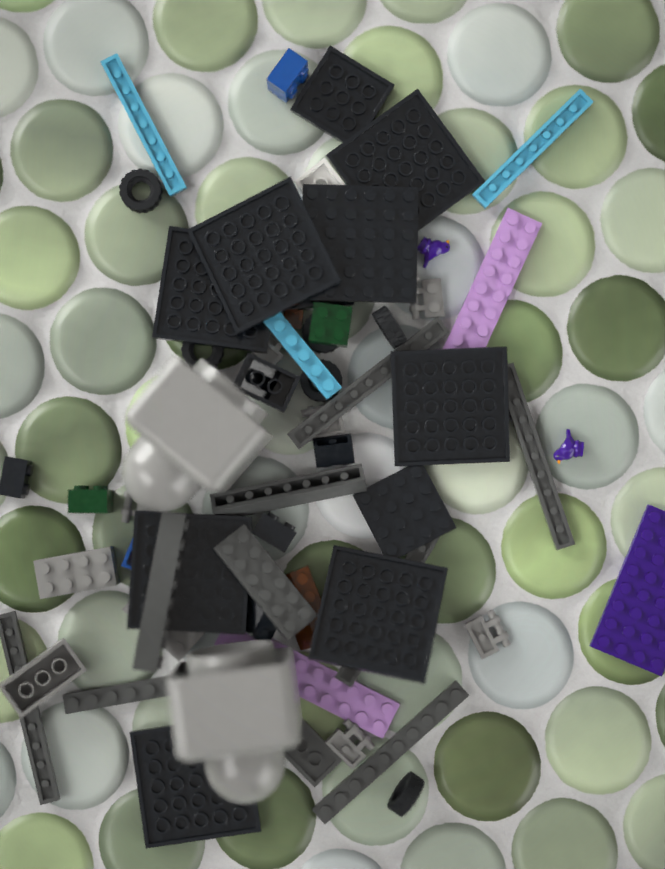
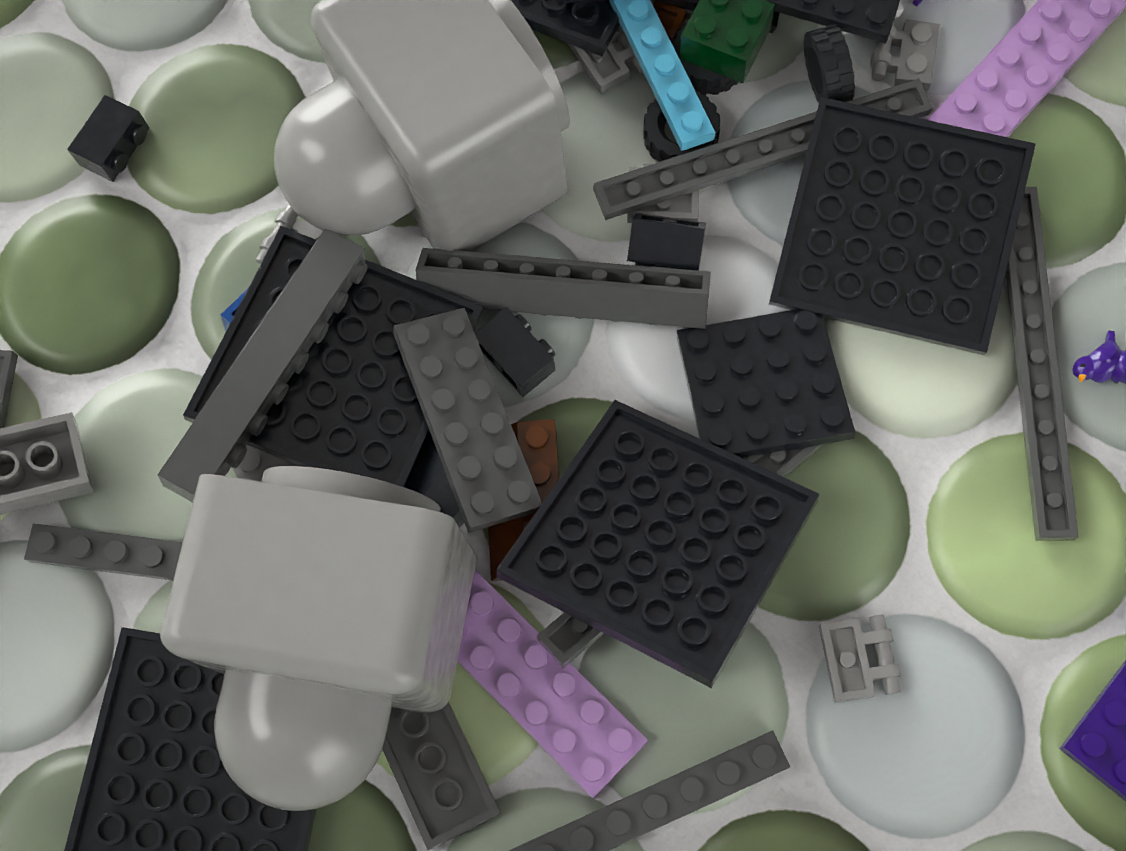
camera: 30 degrees right, 15 degrees down
(76, 572) = (144, 316): light grey brick -> none
(90, 501) = (215, 201): dark green brick -> none
(266, 382) = (598, 100): black slope -> none
(345, 748) = (514, 792): light grey plate -> none

